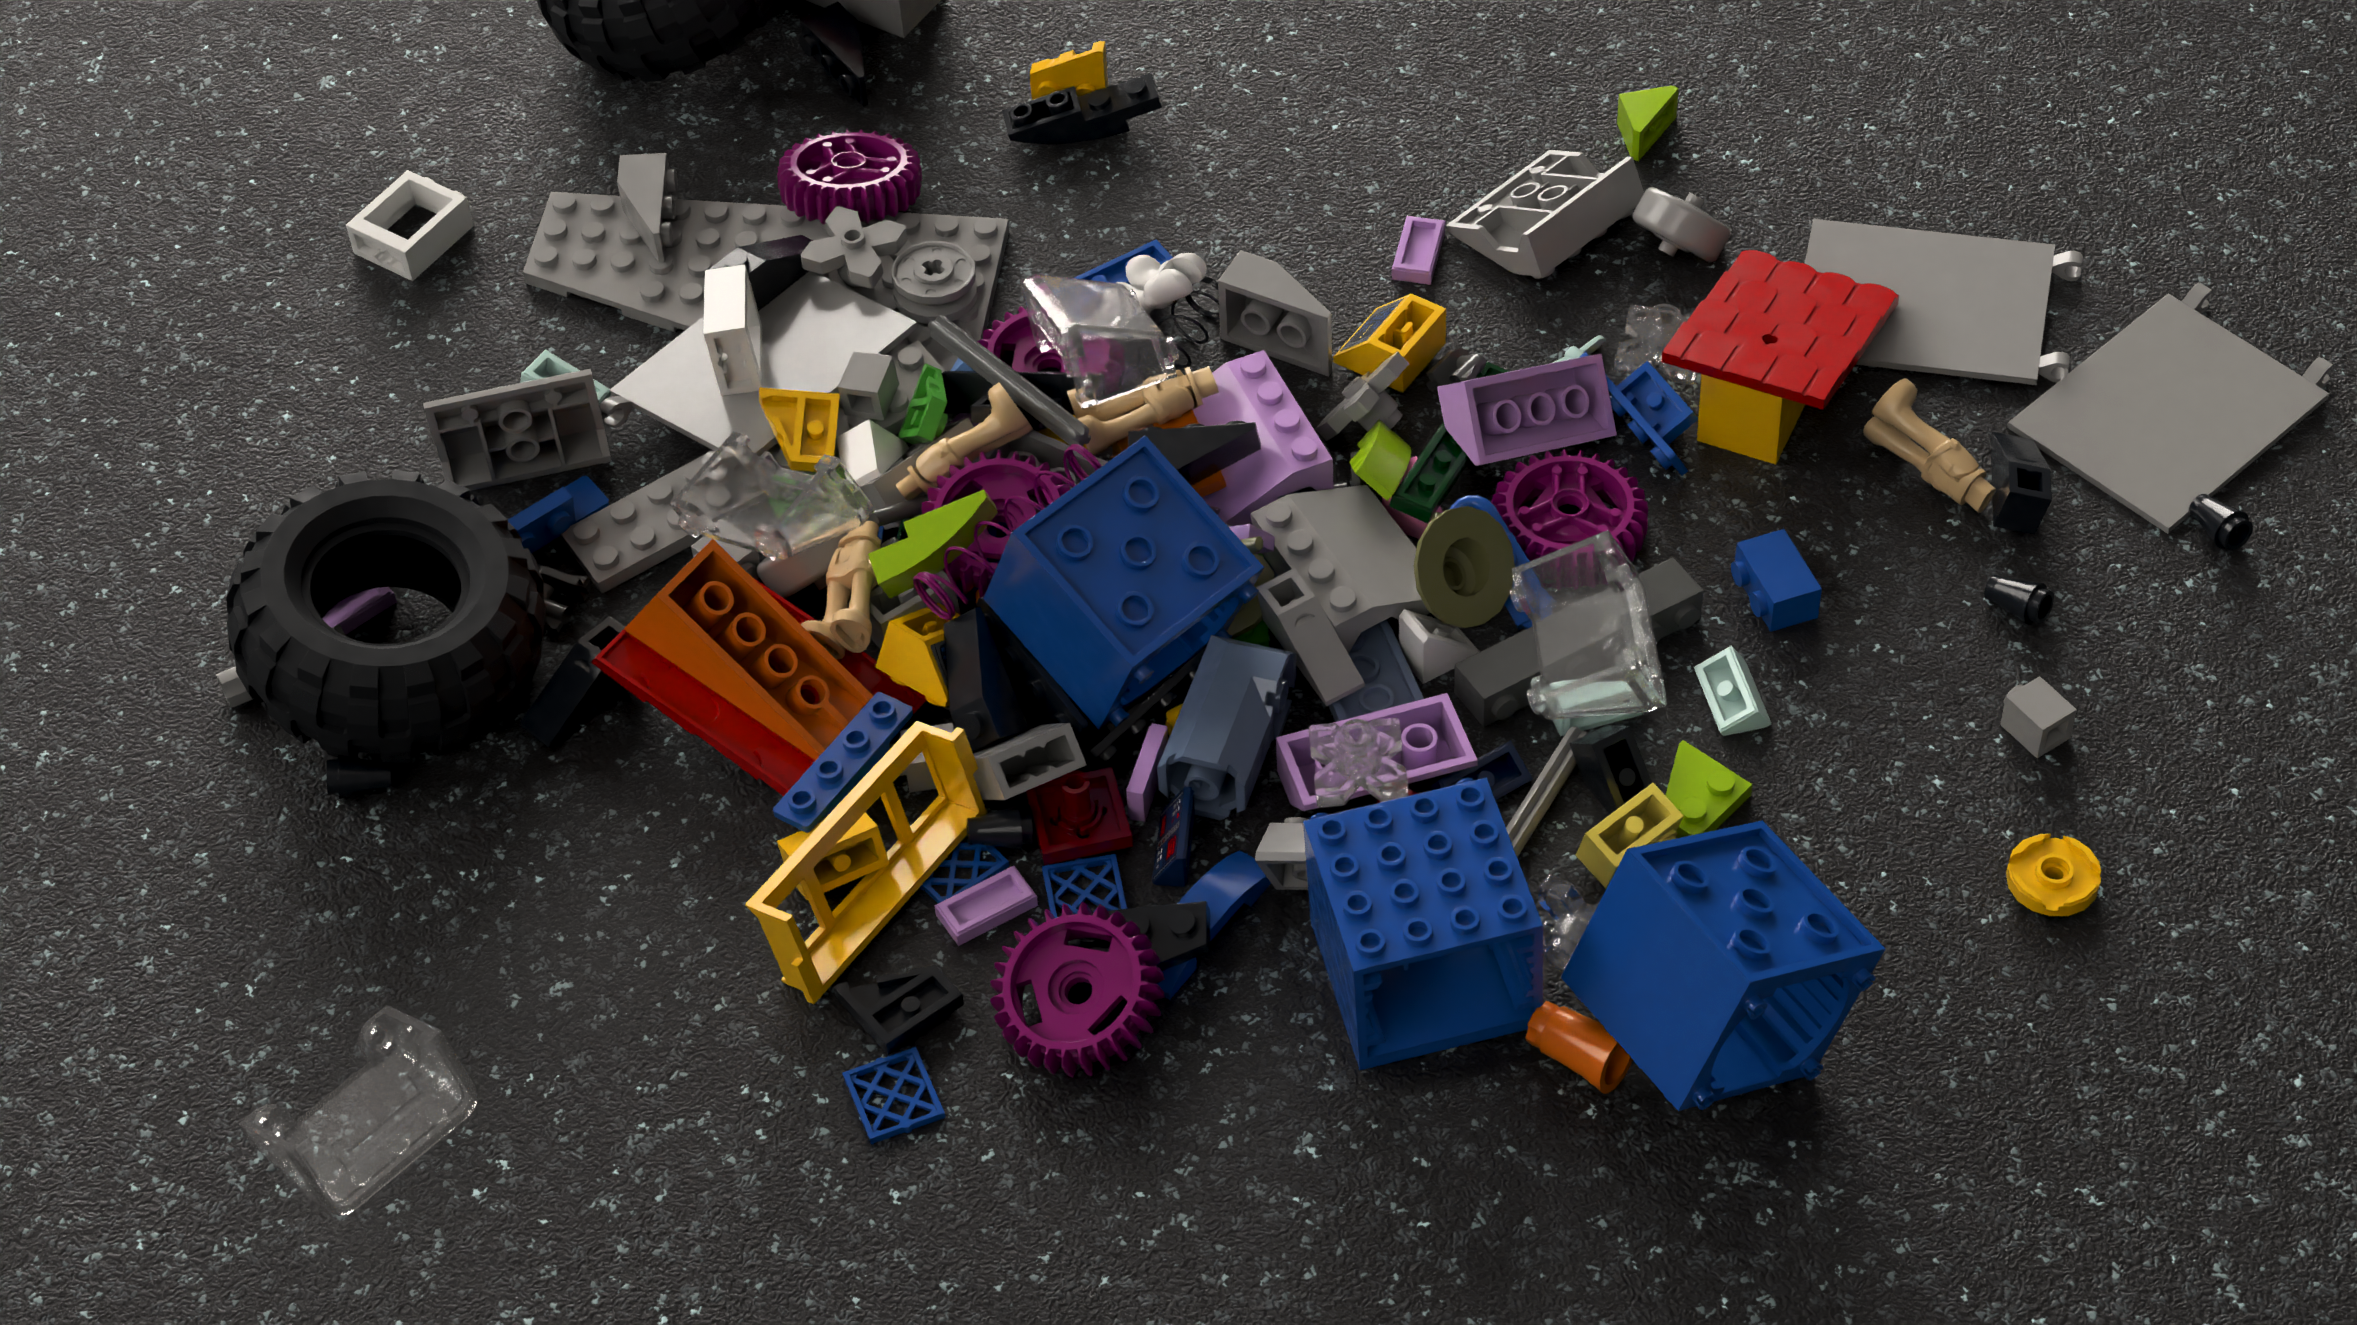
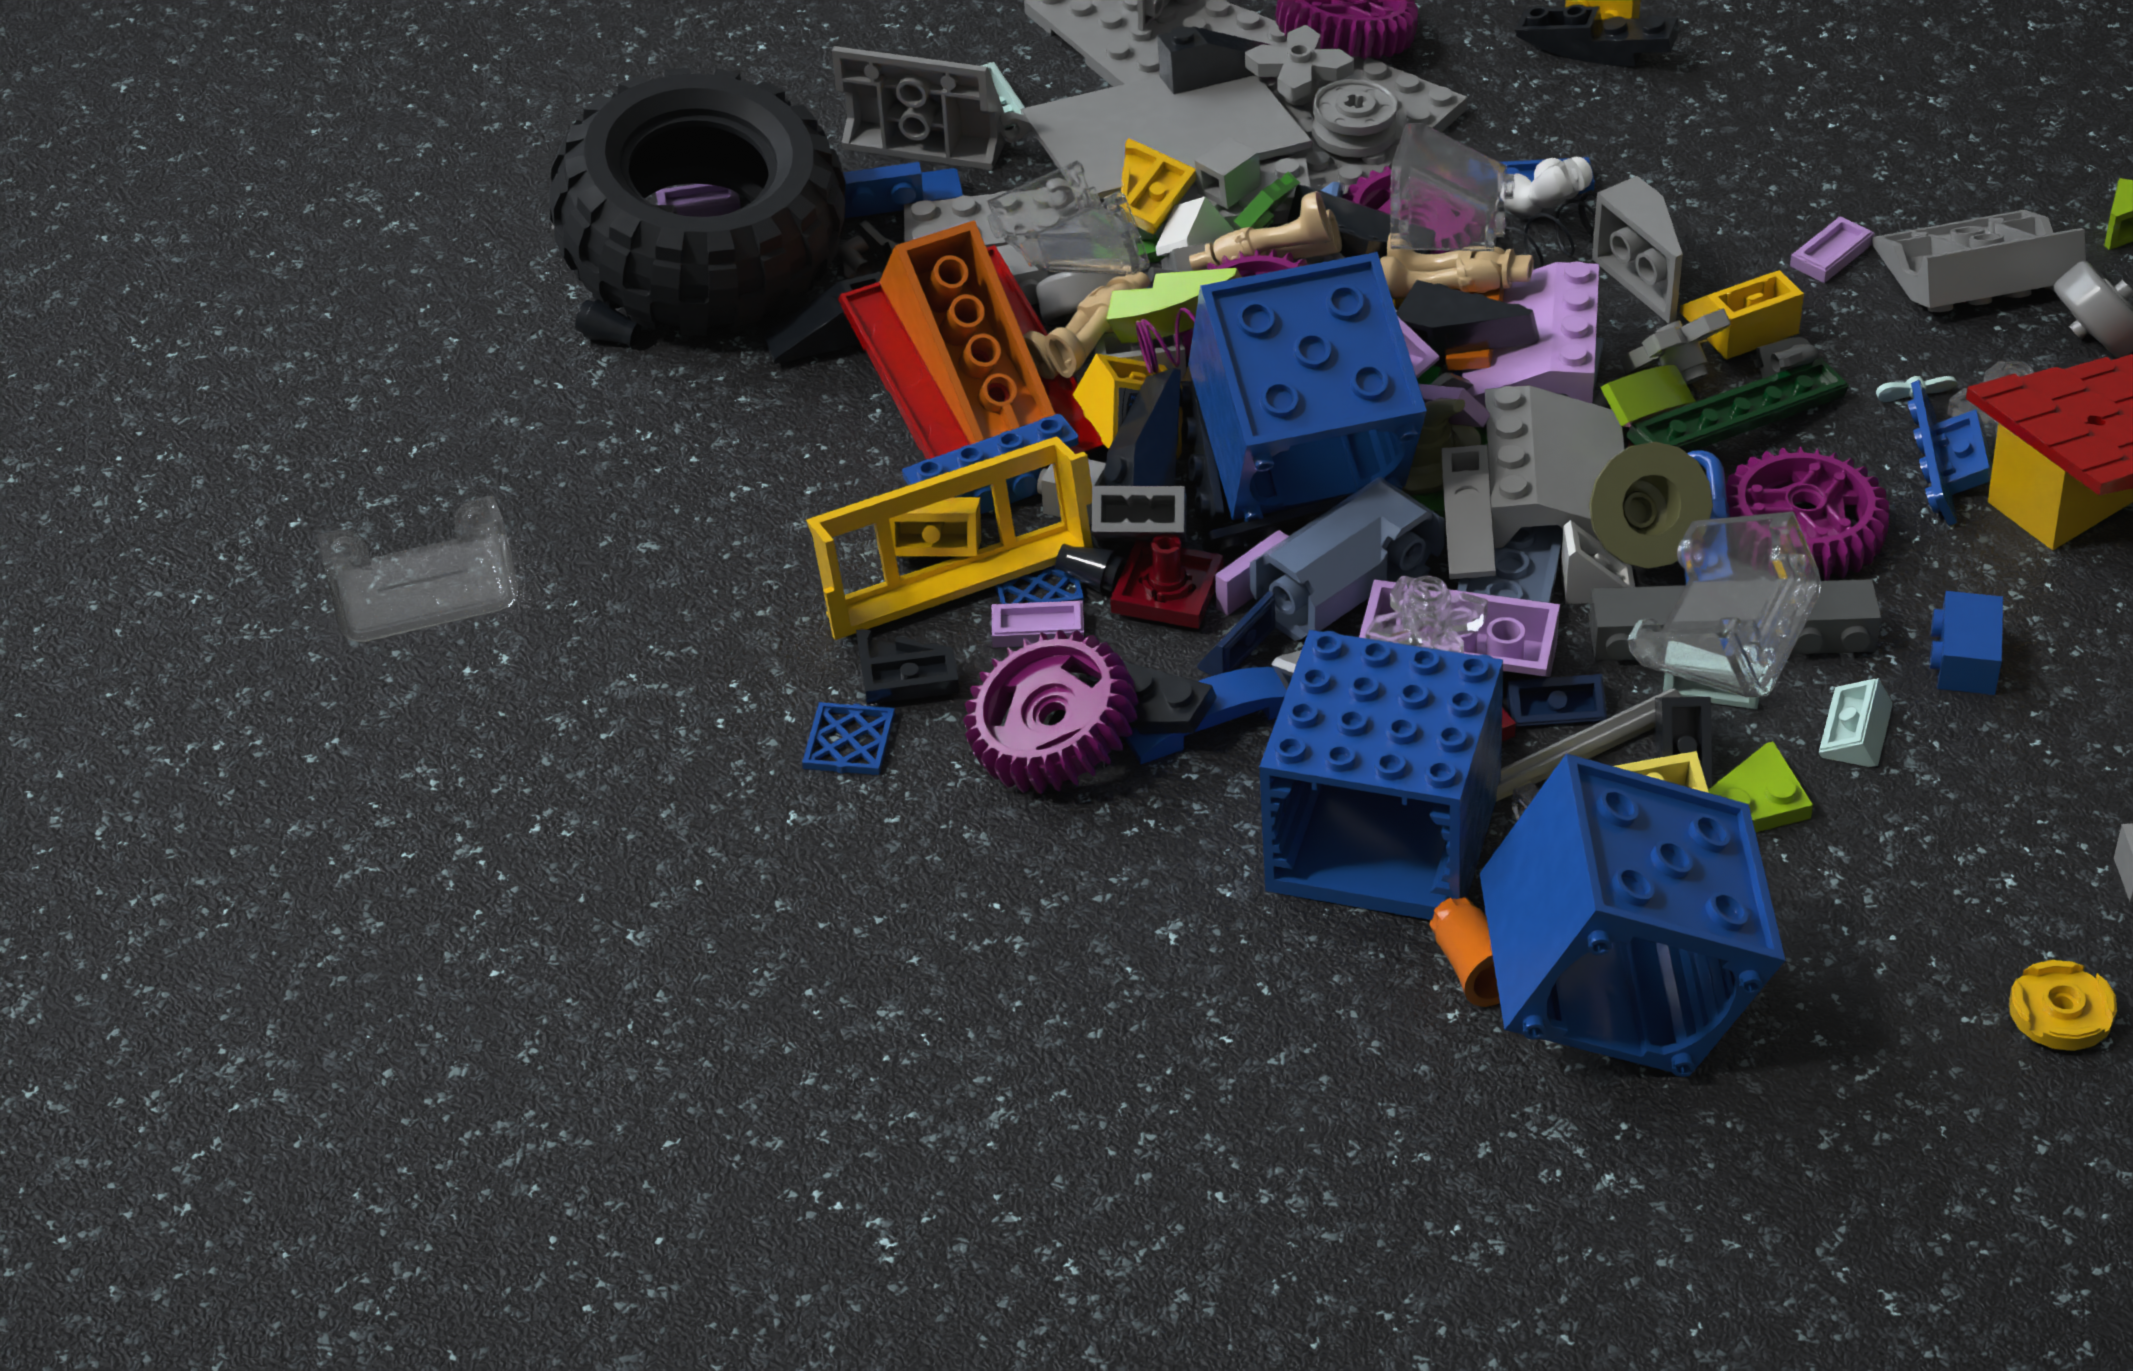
camera: 30 degrees right, 5 degrees down
(733, 330) = (1146, 84): white window -> none
(1017, 387) = (1341, 197): dark grey axle -> none
(1079, 867) = (1140, 626): blue window -> none
(1529, 409) = (1826, 406): lavender slope -> none

